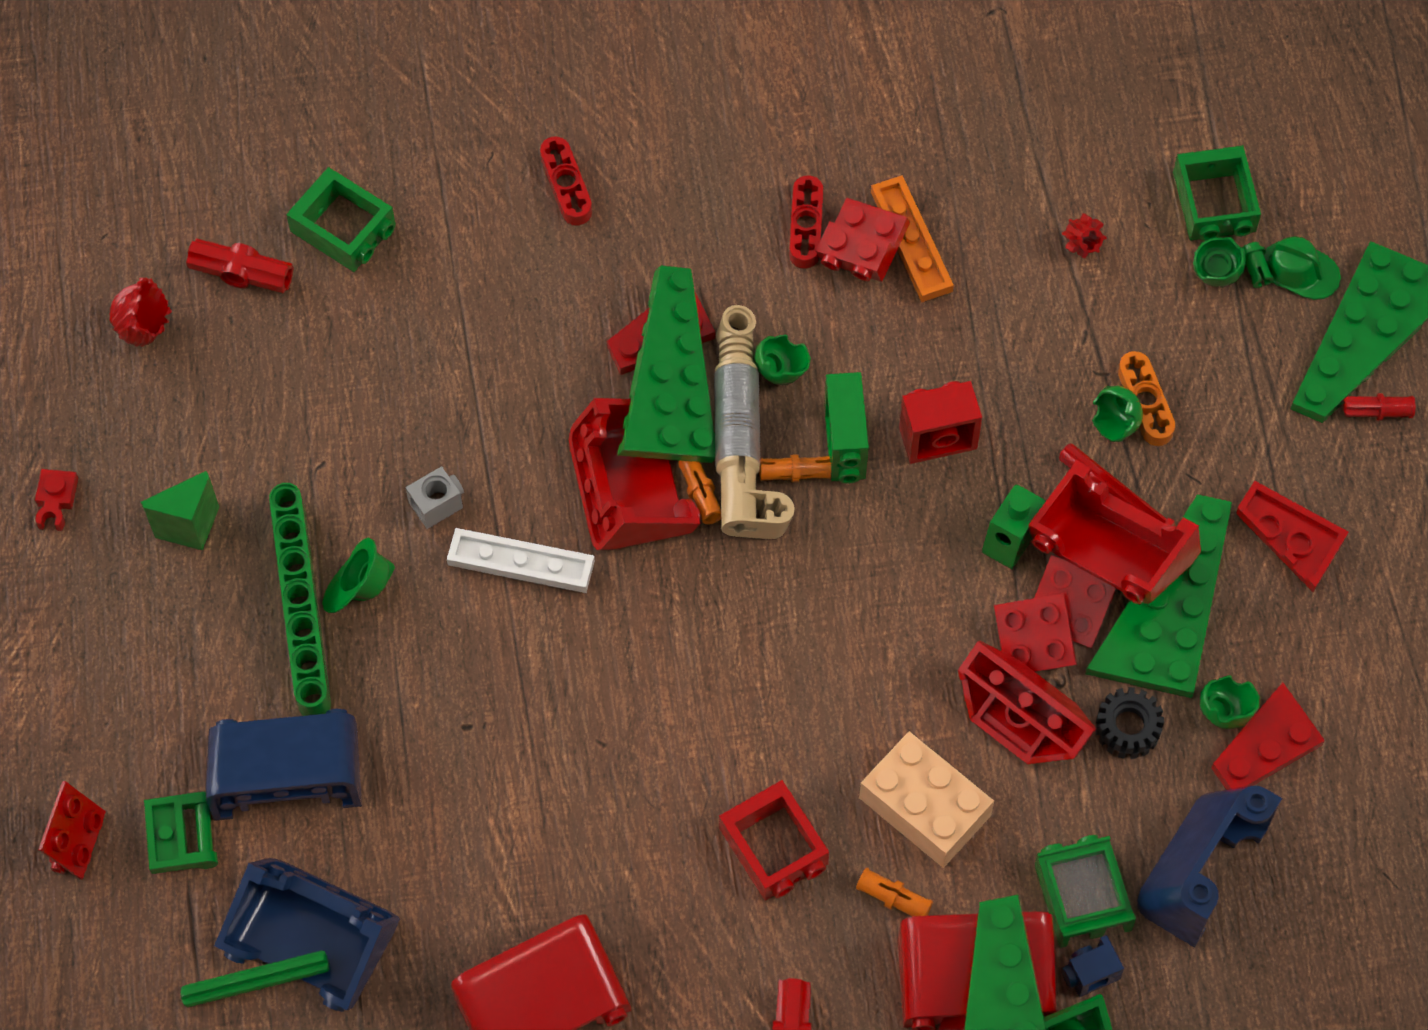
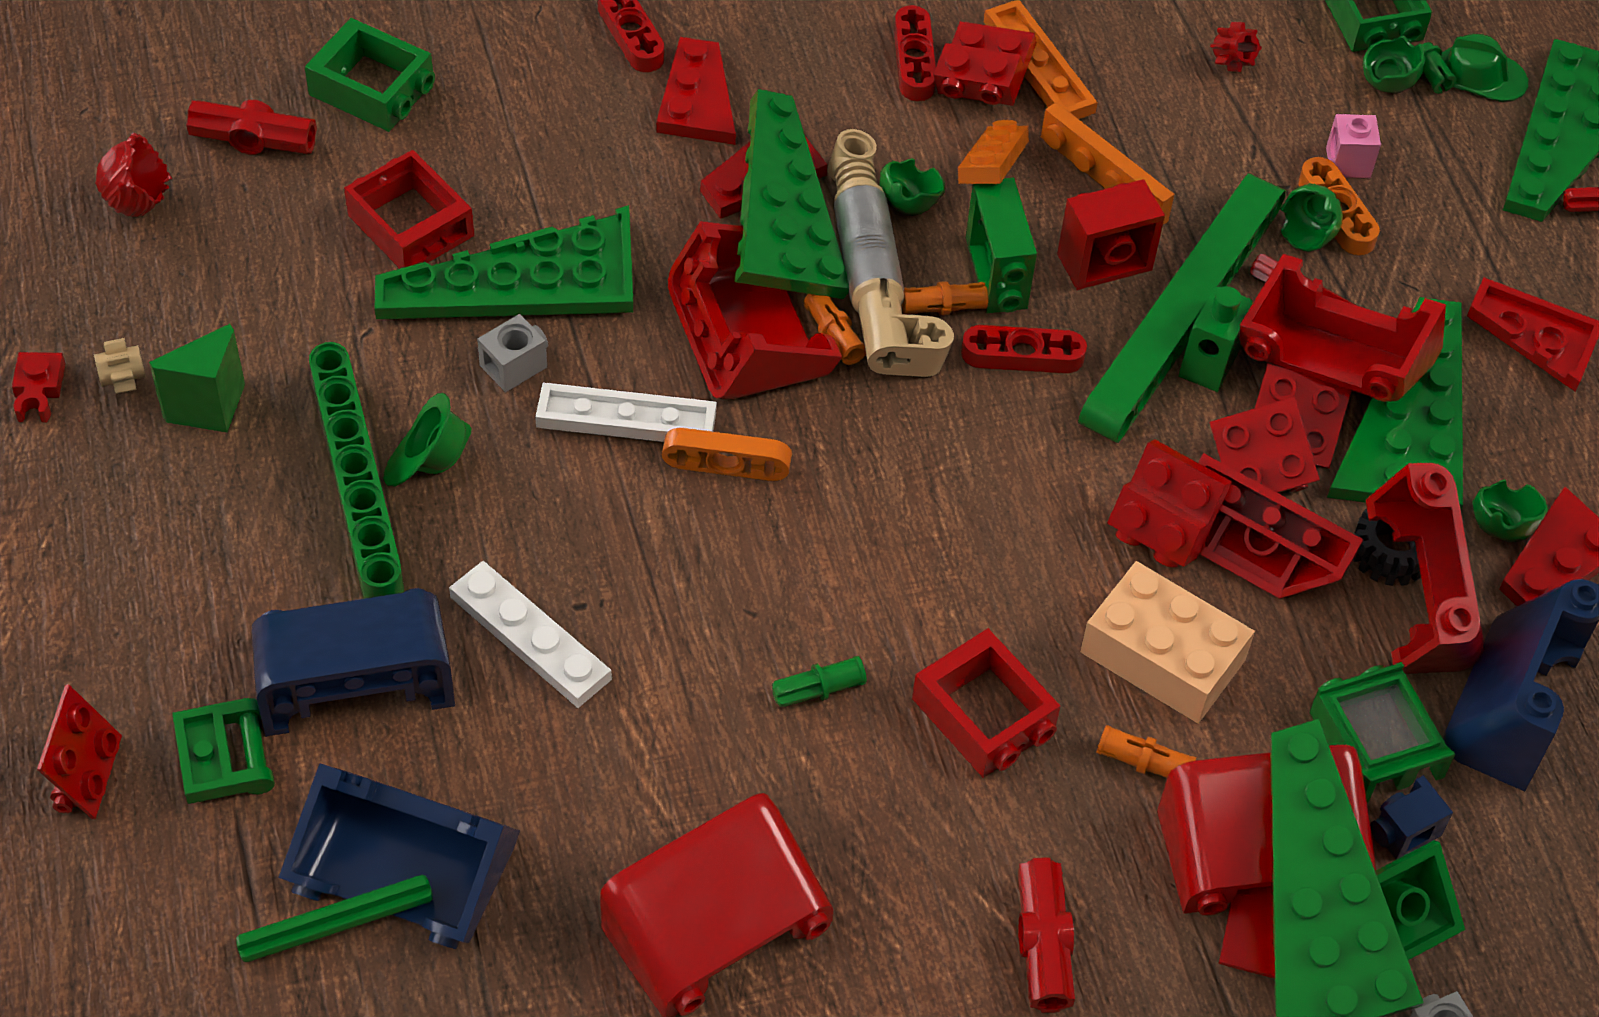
camera: 10 degrees left, 10 degrees down
(120, 489) = (119, 365): none -> tan gear
(380, 381) = (424, 240): none -> red window
(425, 749) = (530, 634): none -> white plate
(460, 422) = (529, 274): none -> green wing
(597, 603) = (700, 452): none -> orange beam
(613, 253) = (697, 95): none -> red wing
(645, 811) = (819, 682): none -> green axle
(845, 508) = (993, 336): none -> red beam
(852, 340) = (993, 153): none -> orange plate
(945, 681) = (1168, 505): none -> red plate
(957, 355) = (1096, 155): none -> orange plate
(974, 511) = (1168, 325): none -> green beam
(1160, 717) = (1425, 508): none -> red windscreen
(1168, 343) = (1354, 144): none -> bright pink brick

